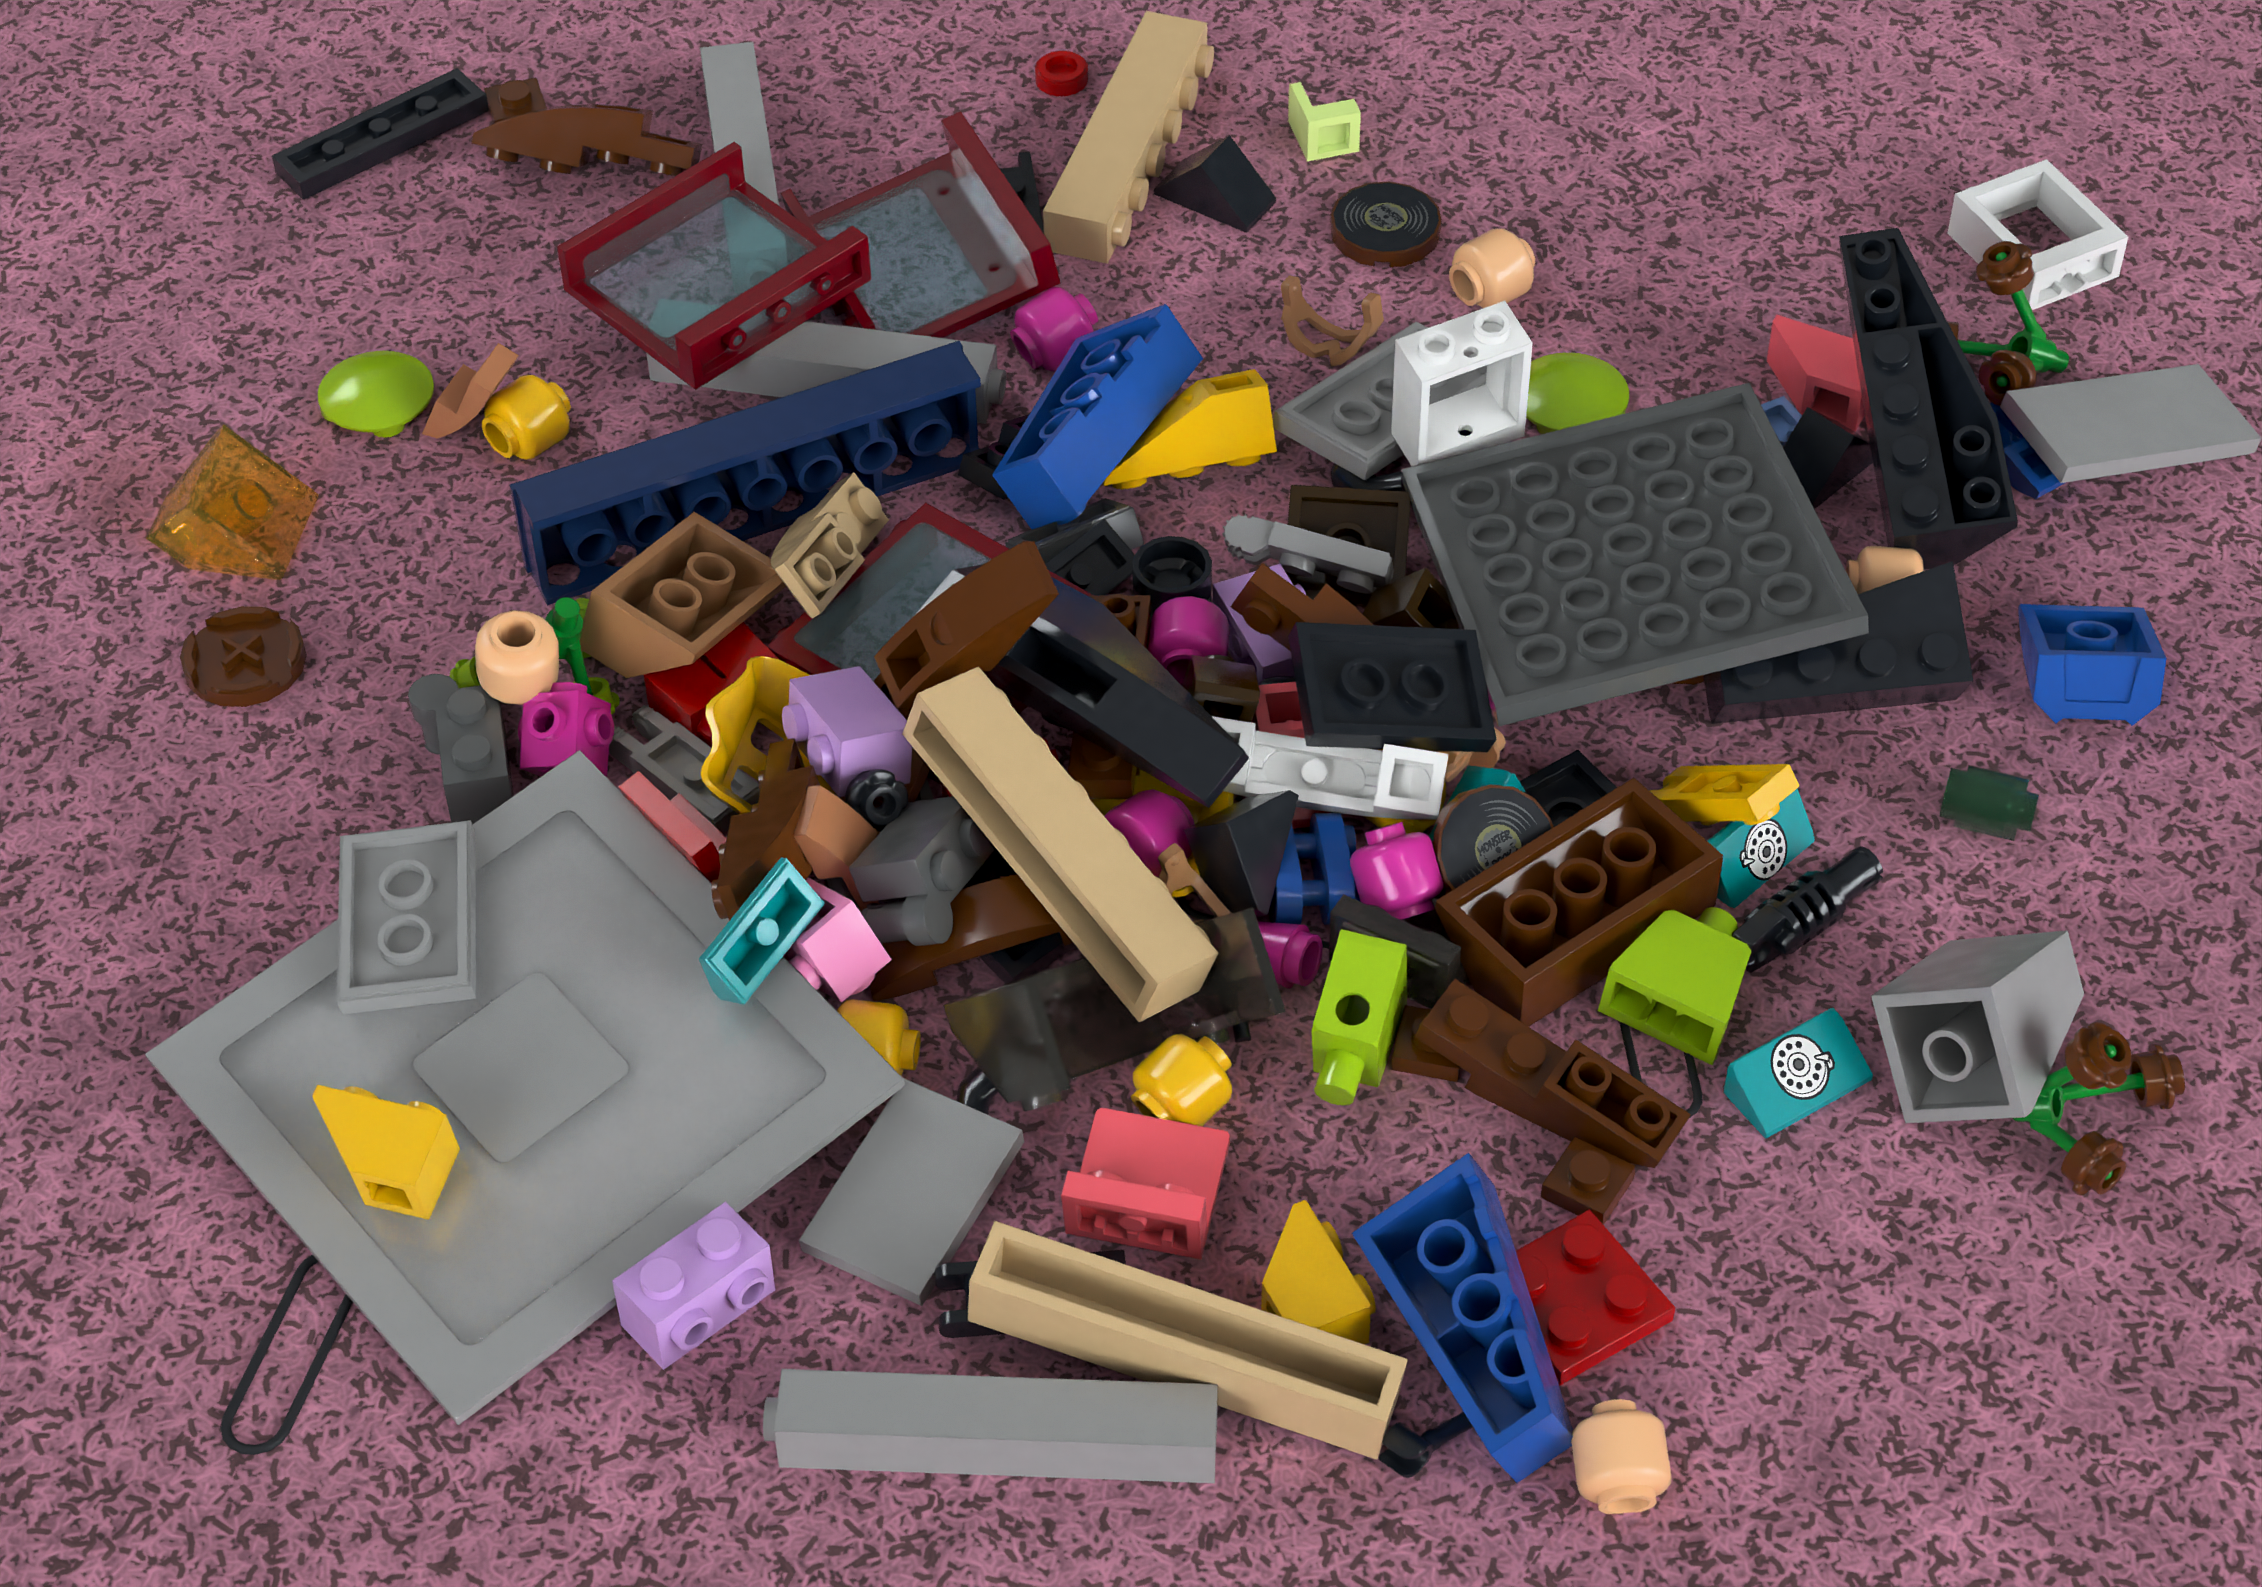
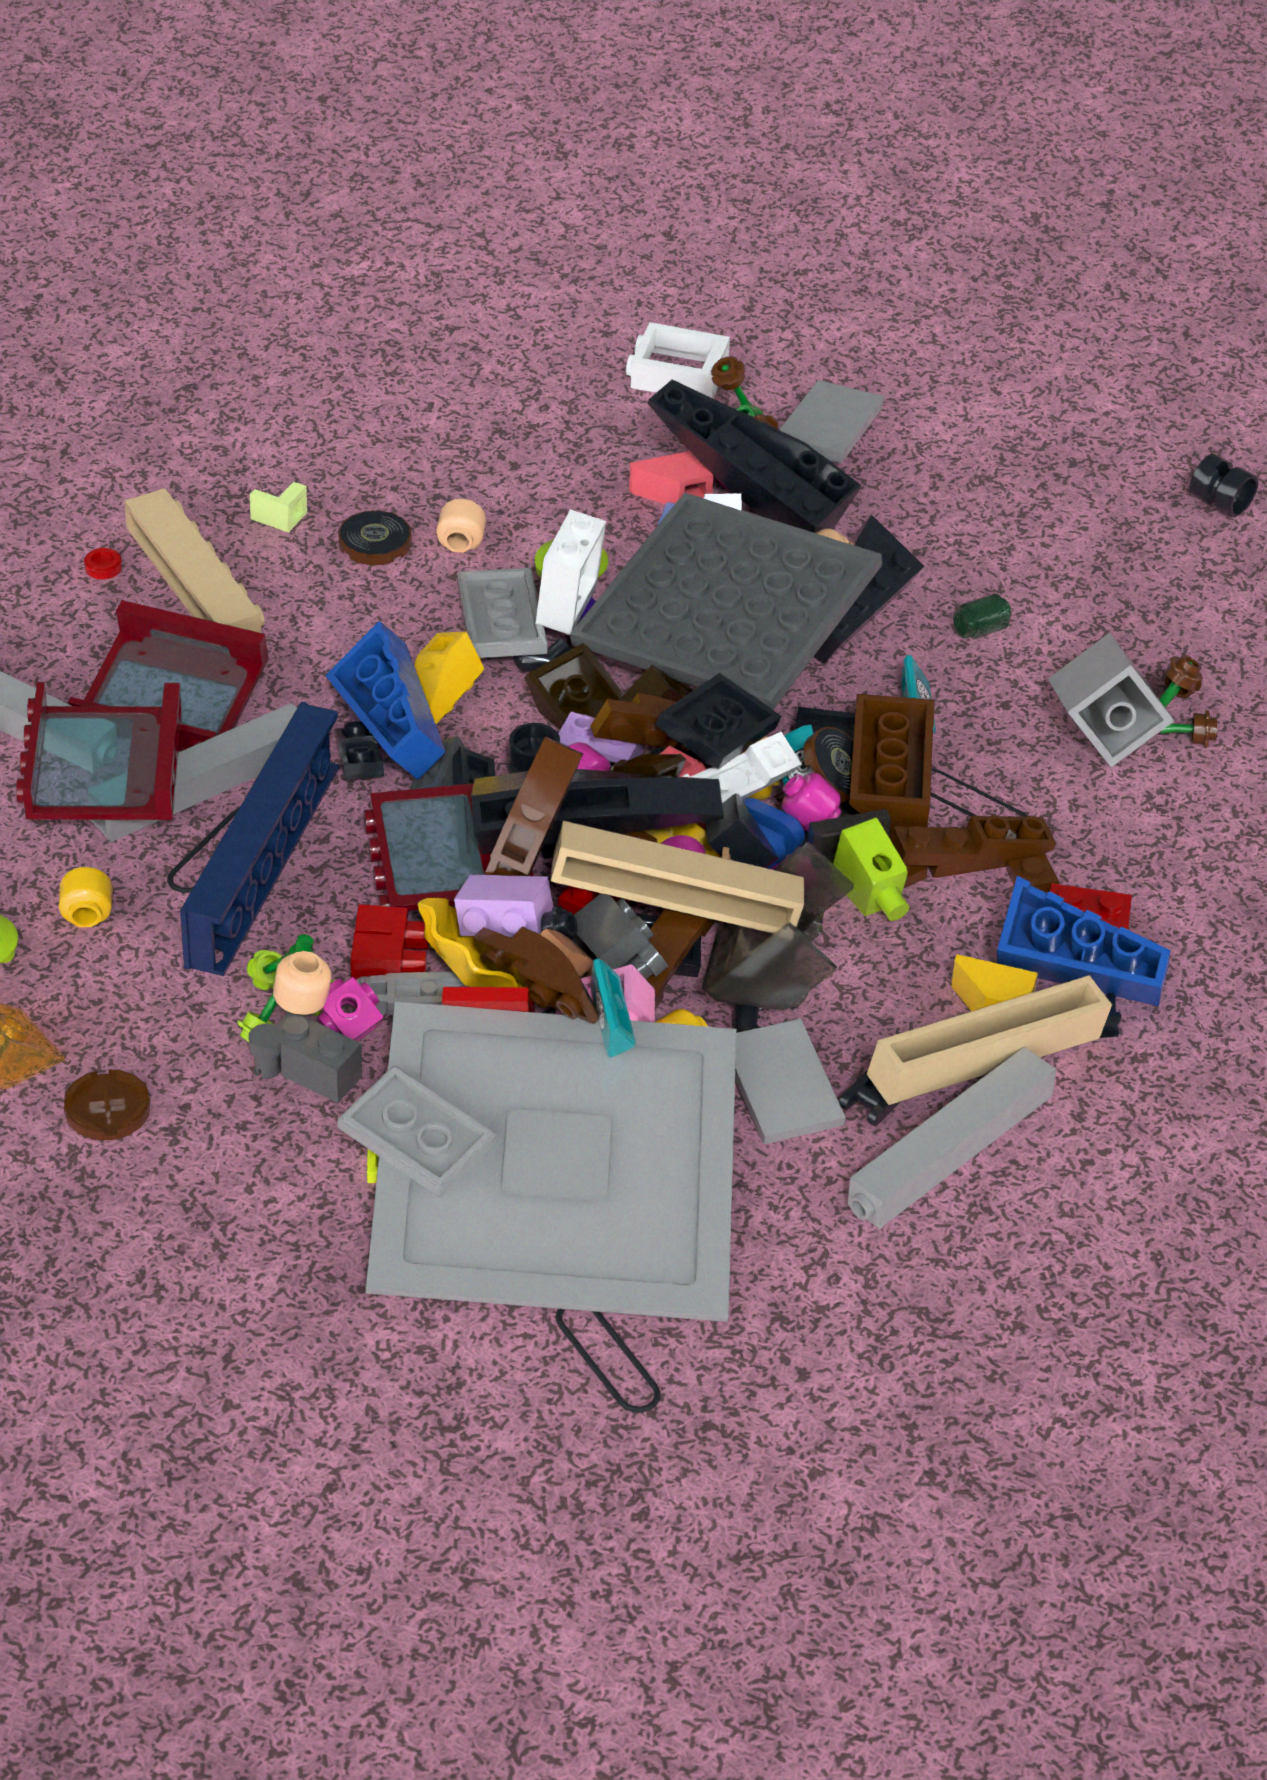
camera: 50 degrees left, 5 degrees down
(390, 1149) = (556, 1229): yellow slope -> none
(468, 393) = (47, 906): nougat slope -> none
(676, 599) = (328, 907): medium nougat slope -> none
(694, 1285) = (757, 1182): lavender brick -> none
(827, 544) = (358, 848): tan slope -> none
(1050, 326) = (295, 680): dark pink head -> none
(1146, 1183) = (876, 1002): coral bracket -> none
(1183, 1080) = (842, 948): yellow head -> none
(1219, 185) = (268, 567): black slope -> none
(1298, 310) = (449, 585): medium nougat helmet -> none
(1306, 551) = (574, 698): light grey hinge -> none
(1621, 1457) = (1193, 961): light nougat head -> none
(1679, 981) = (971, 769): lime torso -> none
(1727, 792) = (894, 676): yellow plate -> none
(1796, 1073) = (1054, 776): teal slope -> none
(1806, 907) = (969, 708): black hinge -> none
(2092, 661) = (948, 530): blue slope -> none

